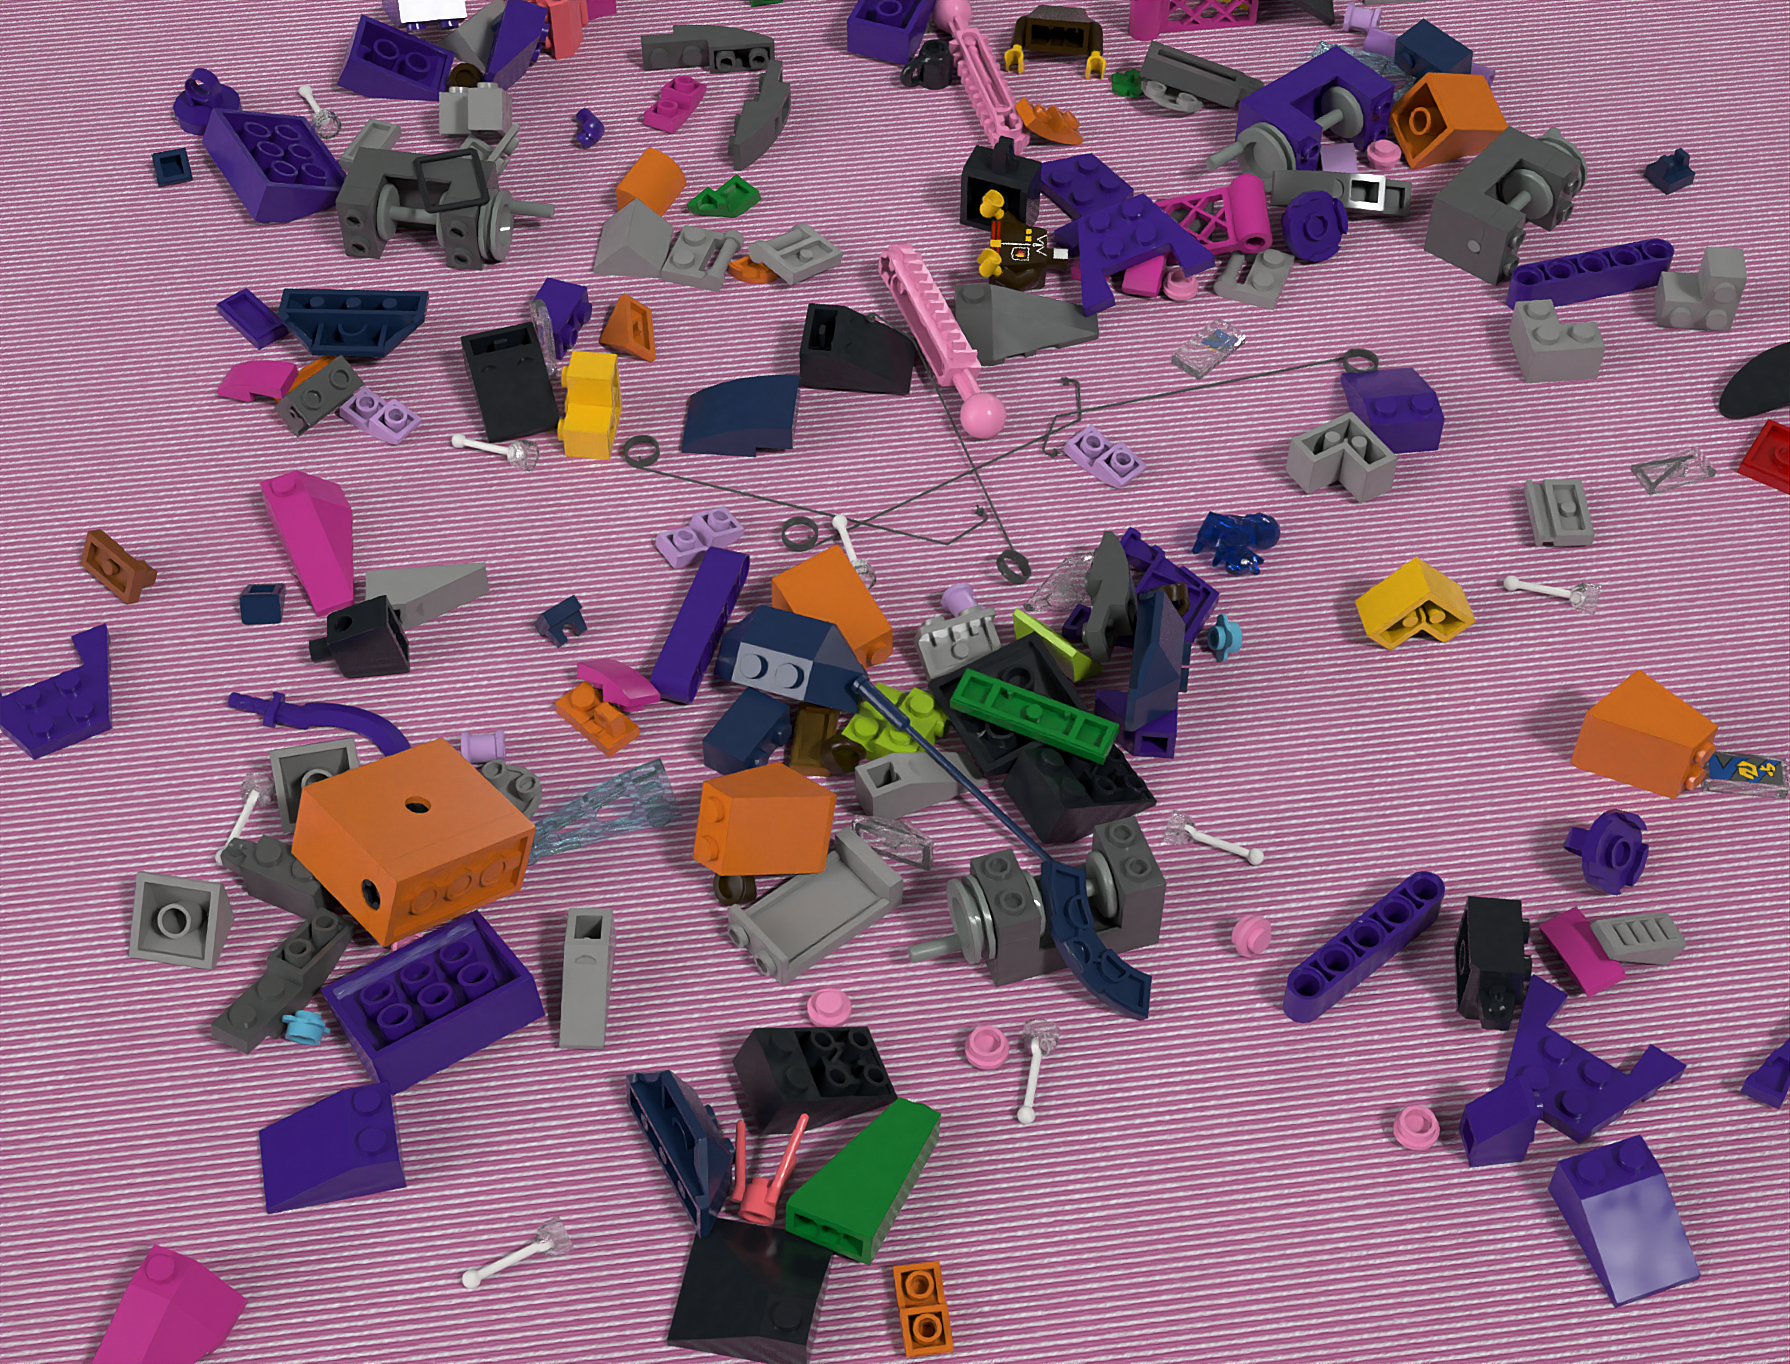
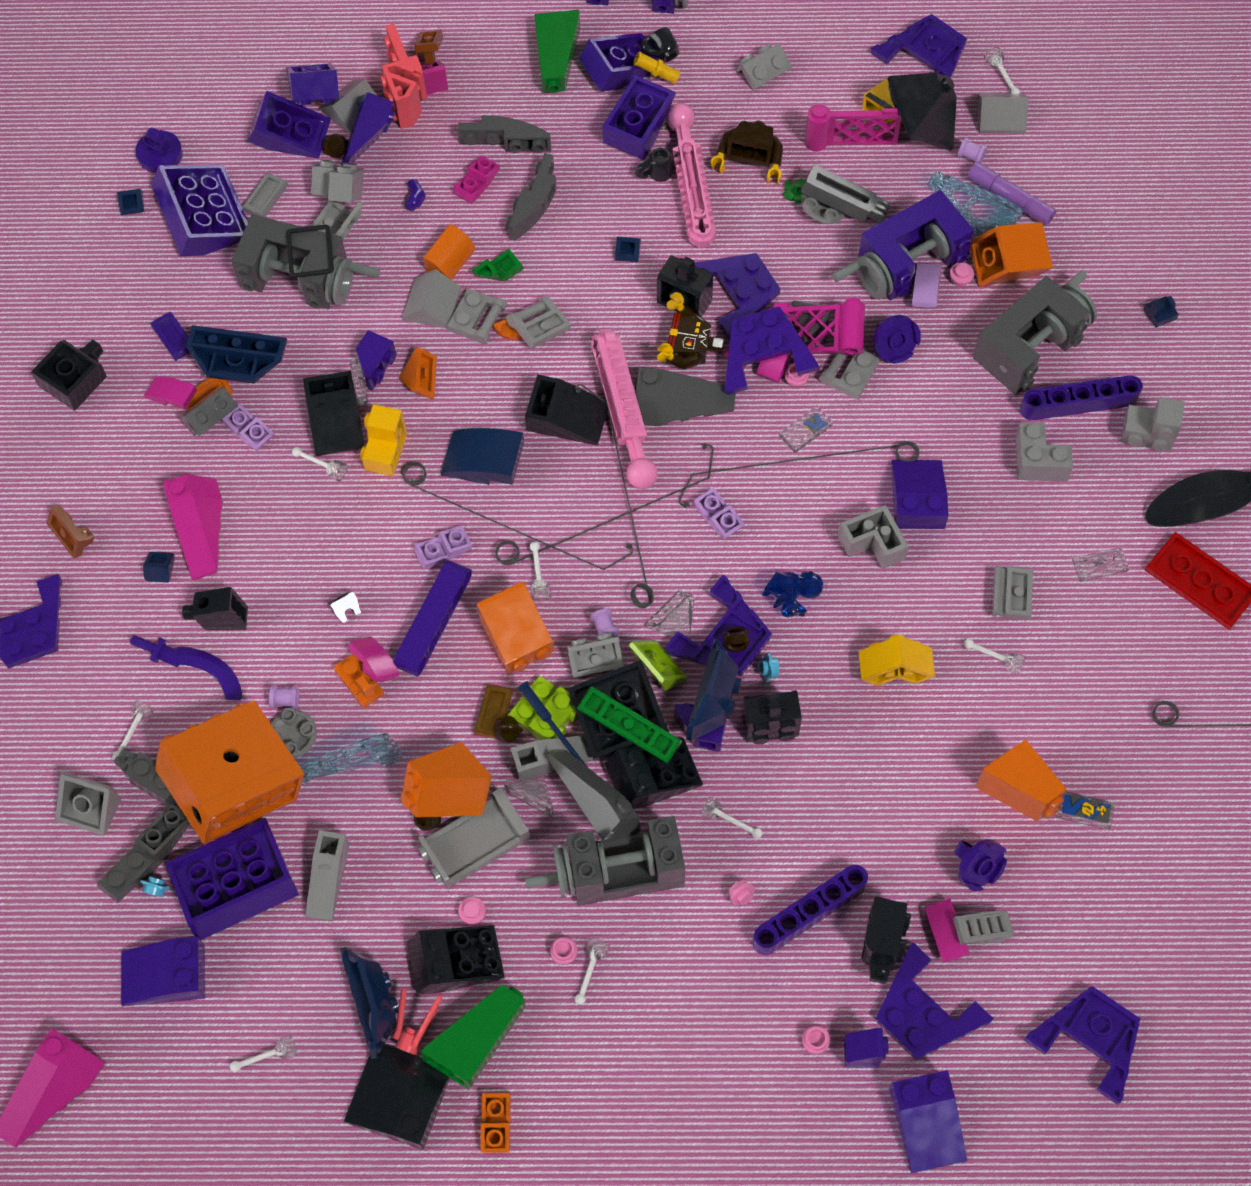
camera: 10 degrees right, 15 degrees up
(101, 369) = (70, 372): none -> black hinge
(304, 765) = (177, 710): light grey slope -> none
(324, 121) = (235, 173): clear hinge -> none
(427, 591) = (257, 574): light grey slope -> none
(747, 733) = (450, 708): dark blue brick -> none
(791, 658) = (483, 660): dark blue wedge -> none
(906, 163) = (627, 249): none -> dark blue slope
(1016, 821) = (601, 803): none -> dark grey wedge
(1050, 123) = (731, 227): orange slope -> none
(1084, 953) = (630, 898): dark blue tile -> none
(1113, 599) = (701, 632): dark grey slope -> none
(1246, 691) = (771, 717): none -> black hinge
(1356, 191) = (922, 311): dark grey slope -> none
(1429, 49) = (1010, 199): dark blue brick -> none

